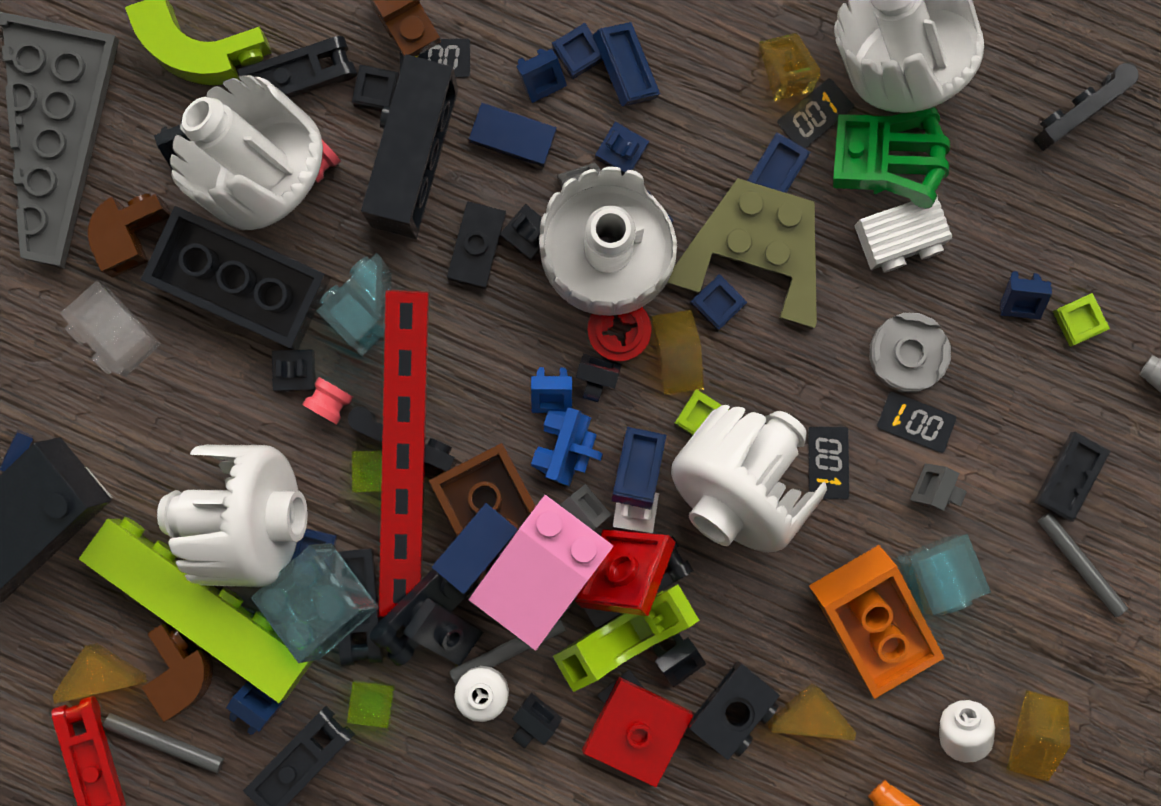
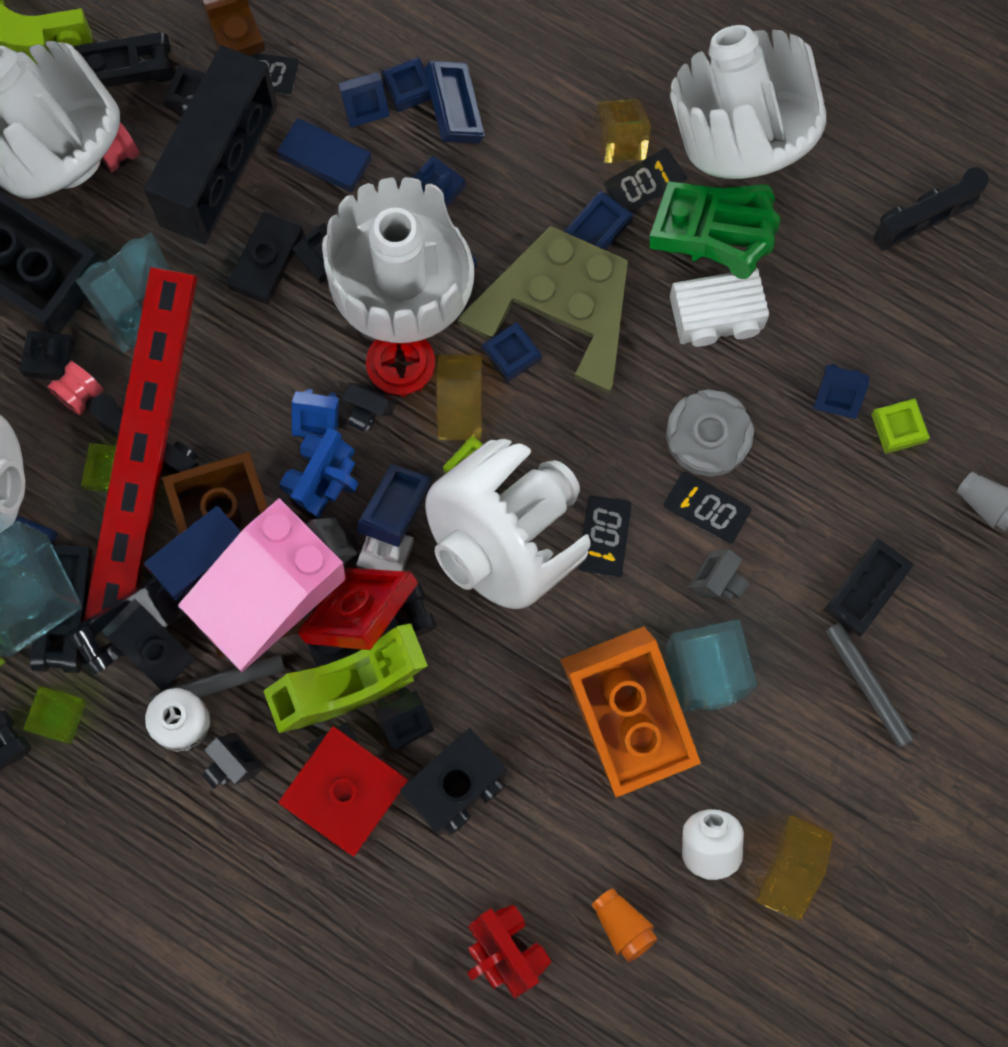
camera: 10 degrees right, 10 degrees down
(811, 715) = (541, 802): clear yellow slope -> none

